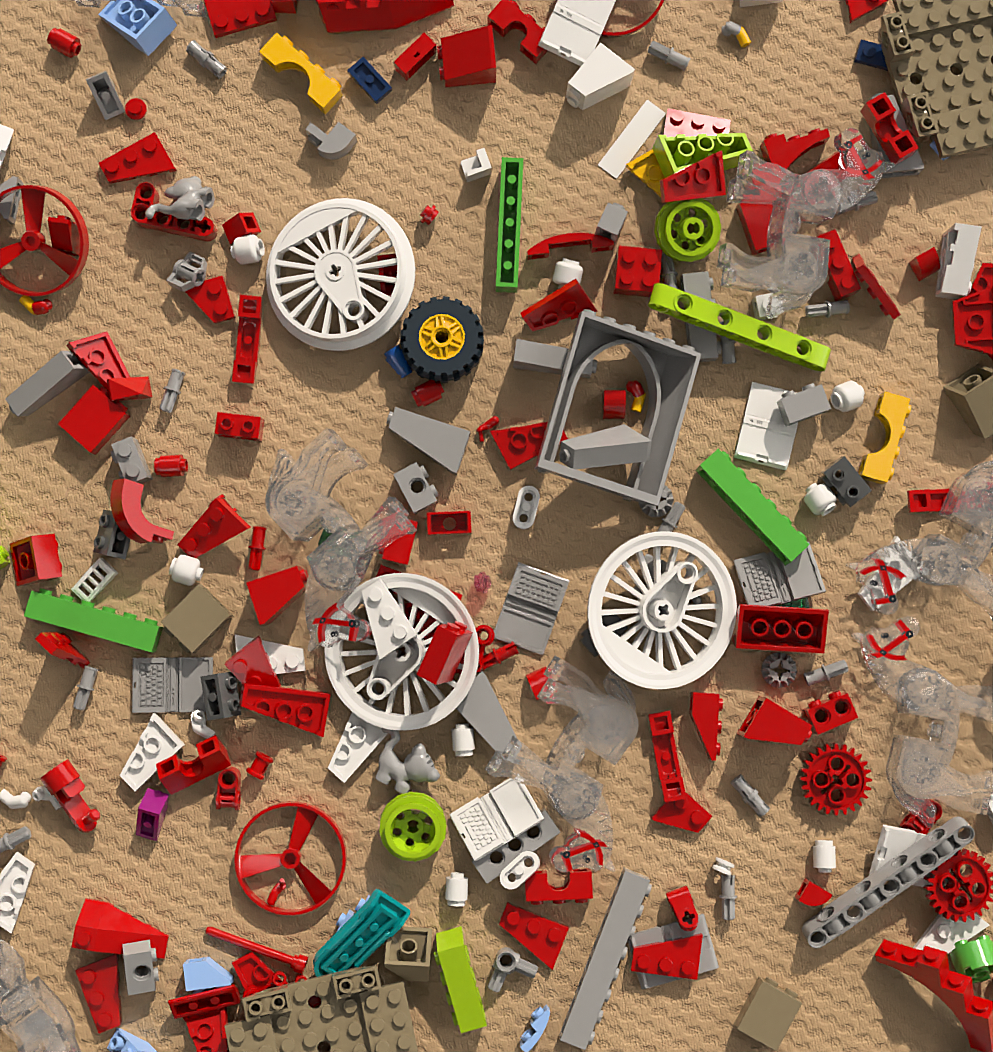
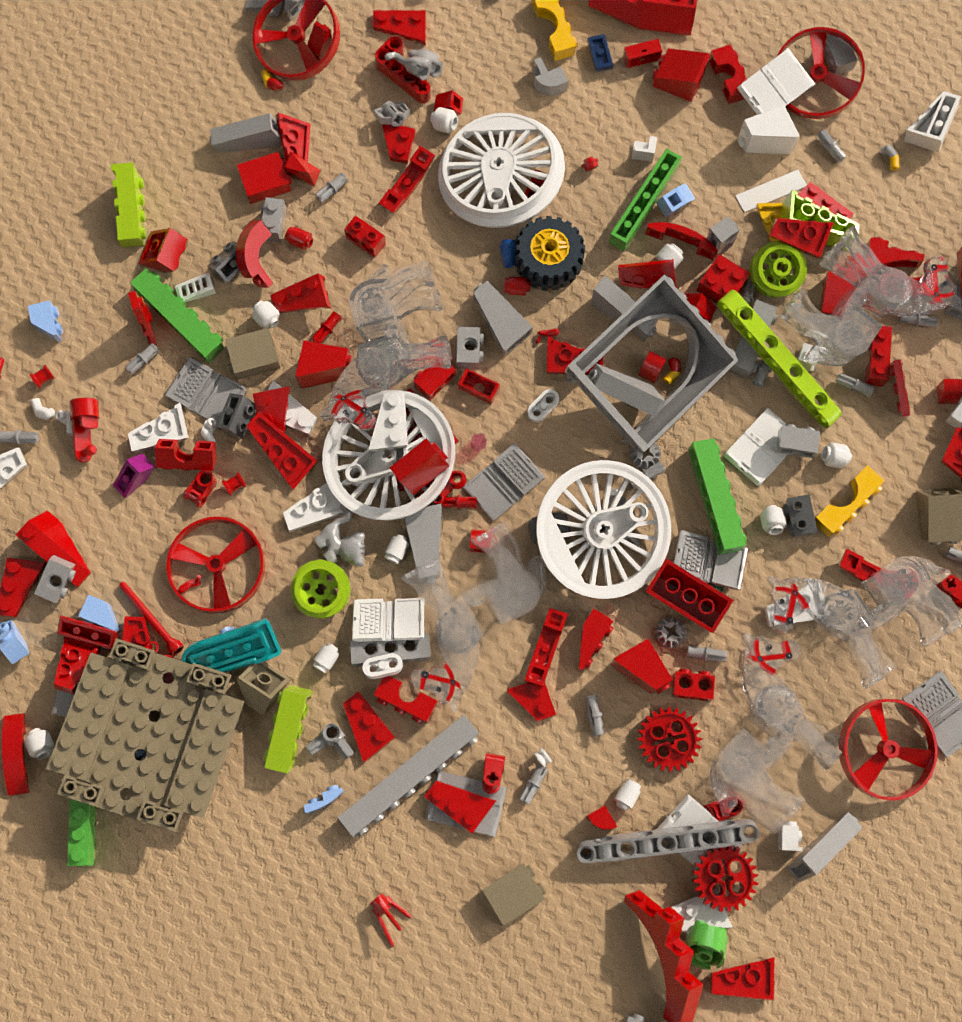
camera: 35 degrees right, 10 degrees down
(540, 207) = (675, 200): none -> light blue slope
(625, 311) = (703, 304): none -> red slope

